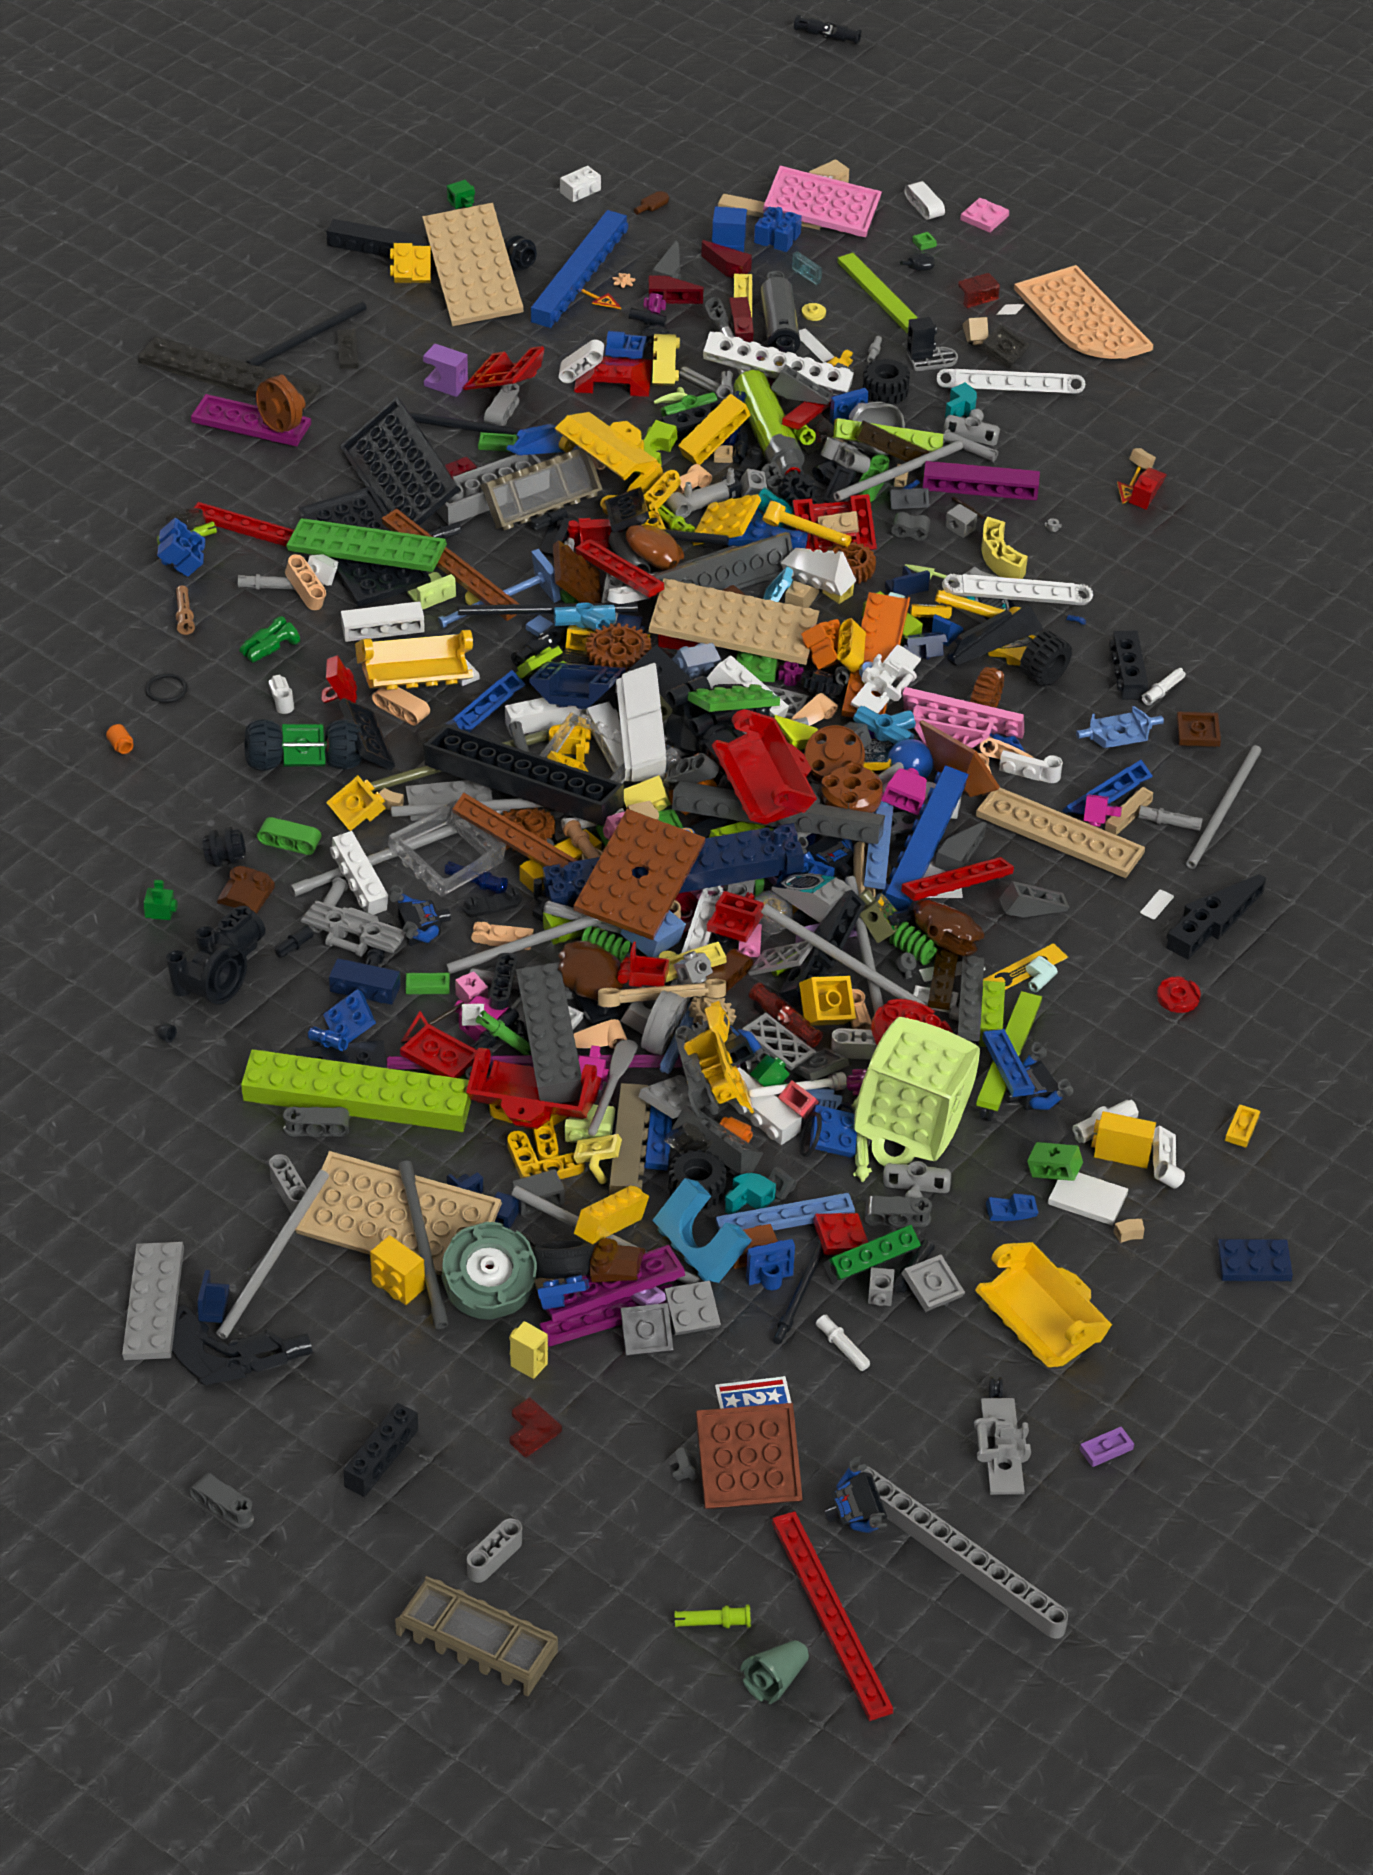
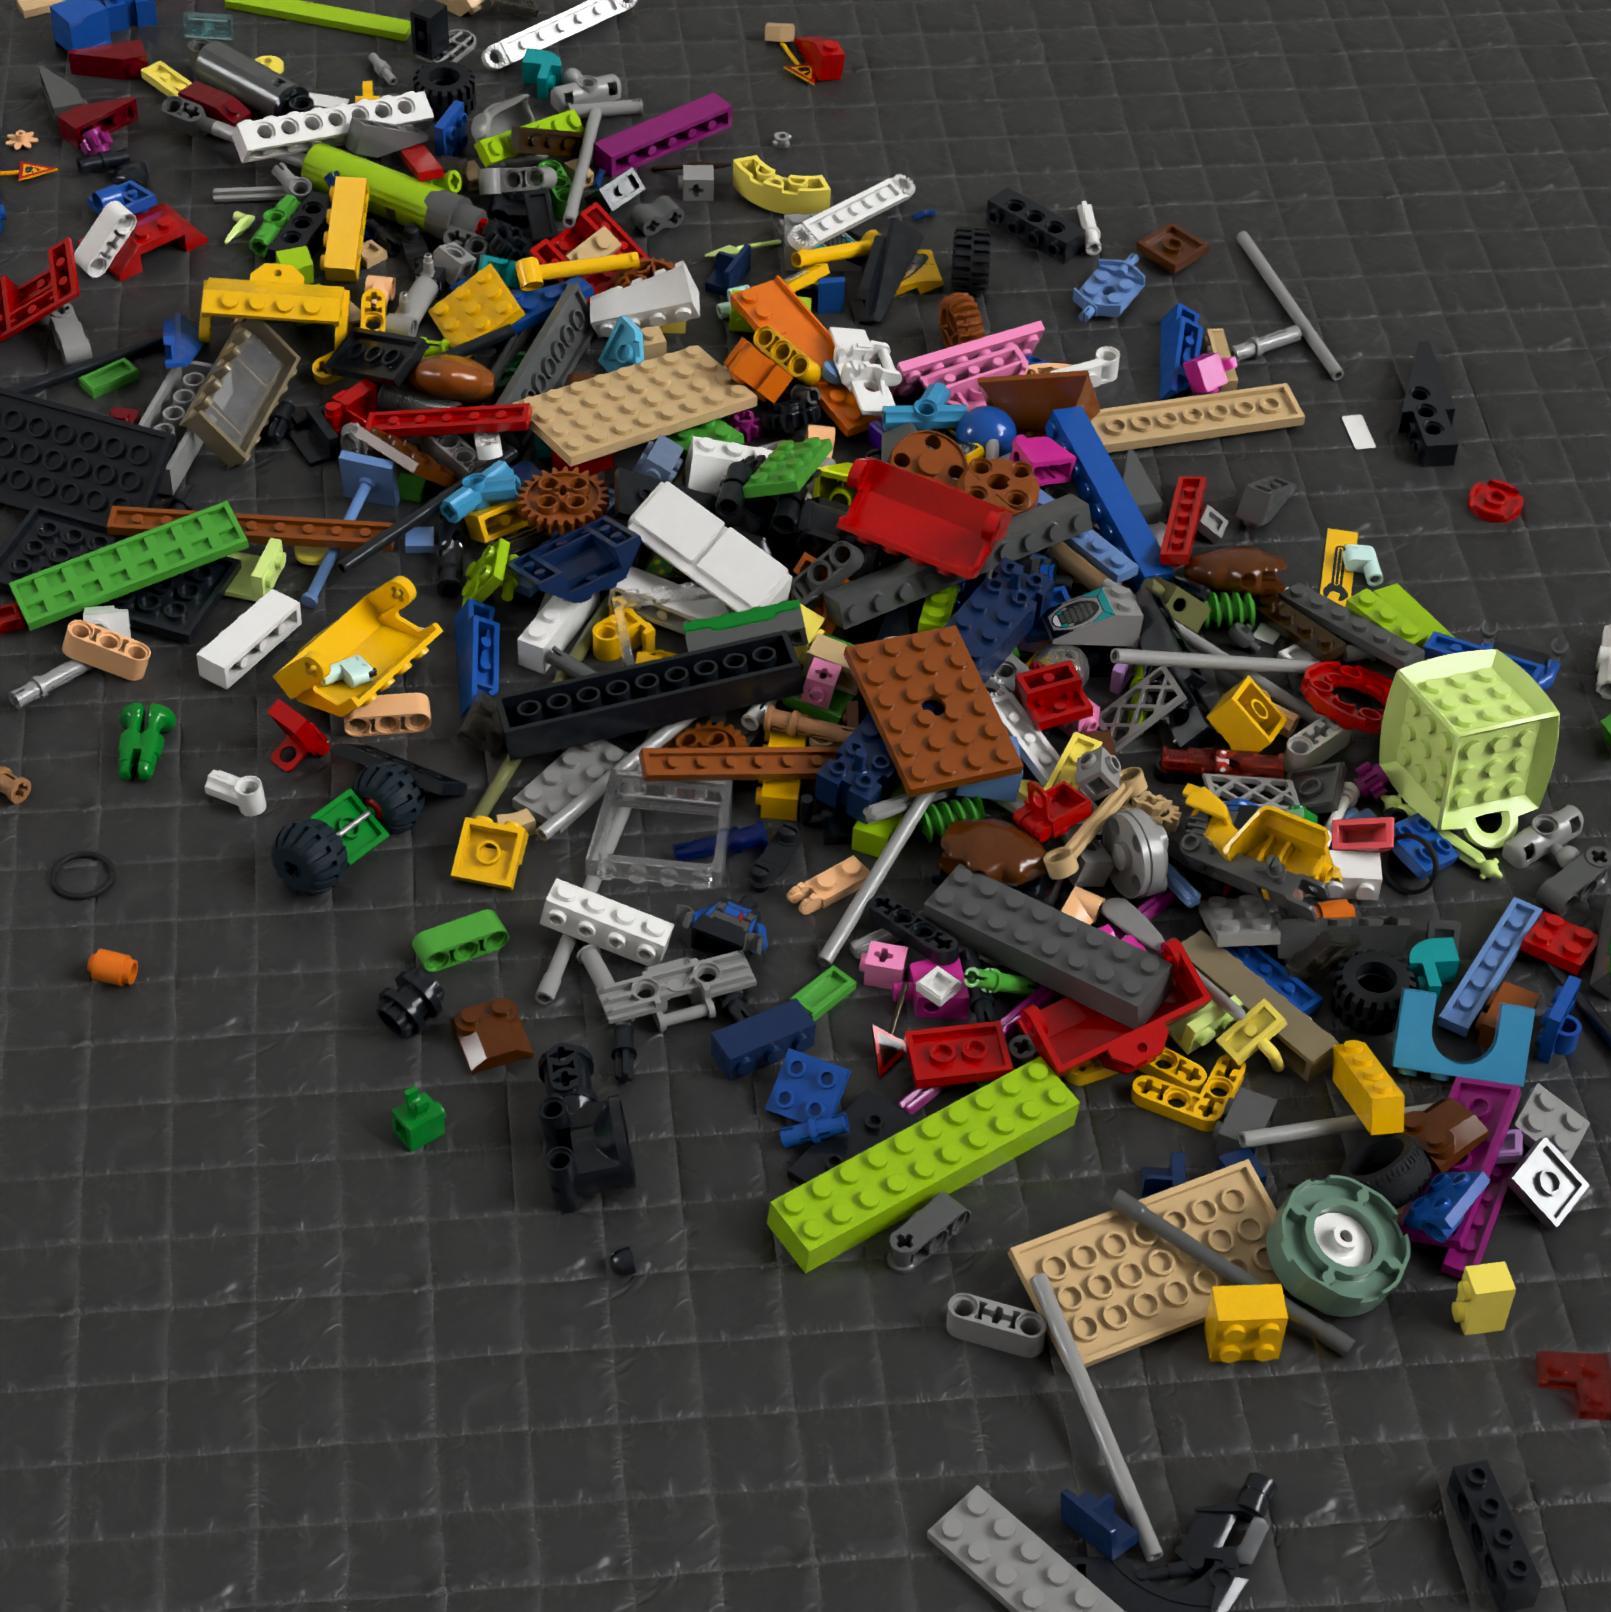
camera: 45 degrees left, 0 degrees up
(401, 667) = (352, 671): none -> light aqua piece
(636, 781) = (747, 624): none -> piece
(664, 366) = (191, 187): light yellow brick -> none
(925, 644) = (836, 311): panel -> none
(979, 894) = (1211, 524): none -> light grey plate

